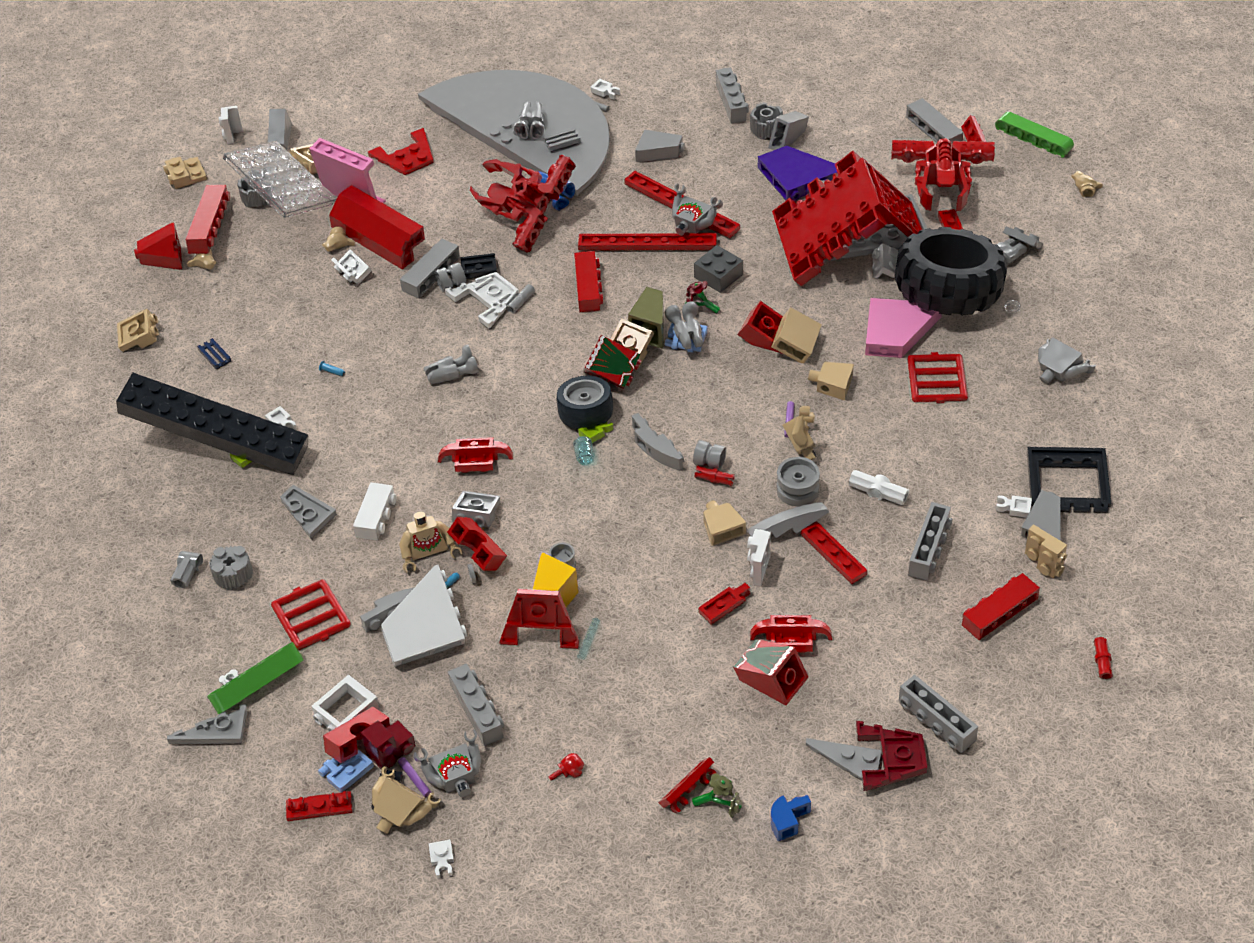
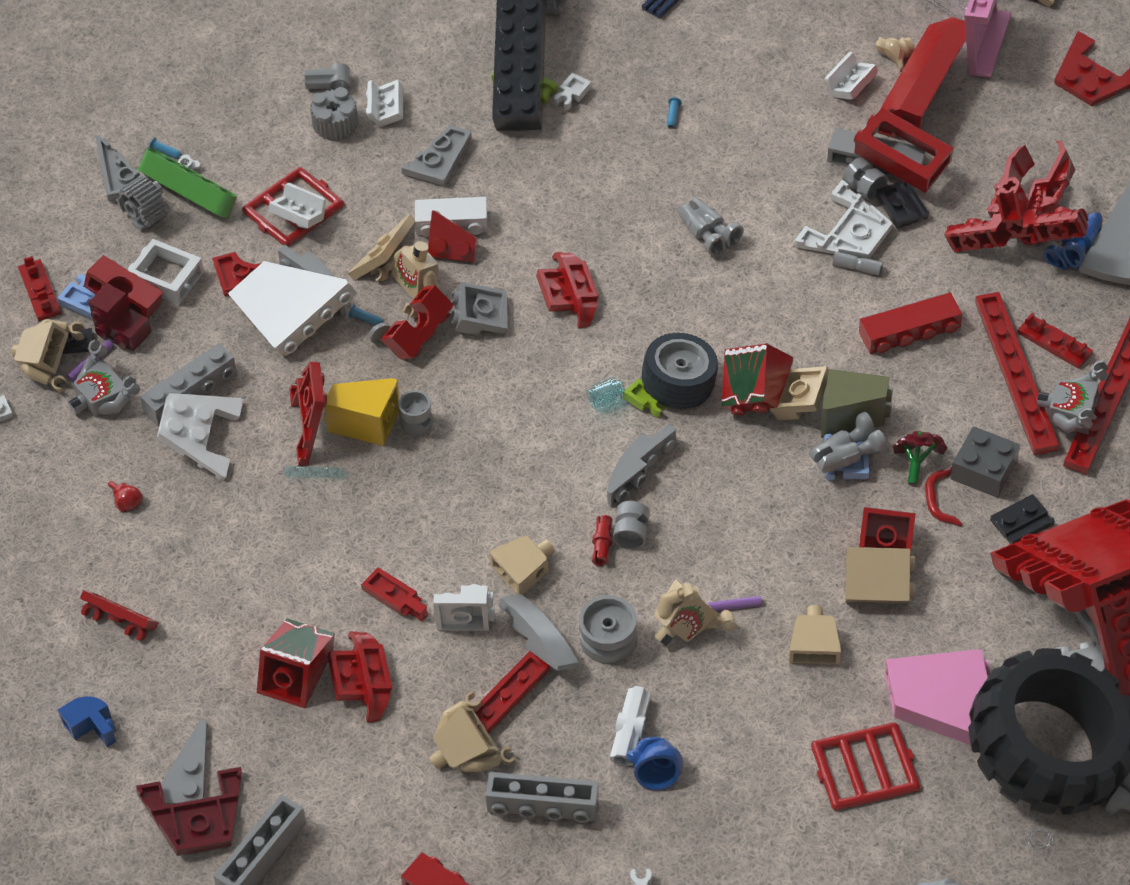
camera: 75 degrees right, 5 degrees up
(203, 694) = (165, 149): none -> dark azure piece
(234, 533) = (385, 102): none -> white bracket
(266, 708) = (143, 202): none -> light grey brick
(323, 601) = (299, 206): none -> white bracket
(367, 661) = (231, 270): none -> red tile
(389, 558) = (383, 250): none -> tan wing
(399, 514) = (450, 240): none -> red wing
(439, 258) = (896, 163): none -> red piece
(526, 707) = (187, 426): none -> white wing
(627, 219) = (1055, 341): none -> red plate
(721, 786) = (104, 638): olive plant -> none
(734, 304) = (931, 497): none -> red animal
(766, 265) = (1022, 519): none -> black plate
(870, 576) = (465, 741): none -> tan torso
(915, 475) = (656, 763): none -> blue piece

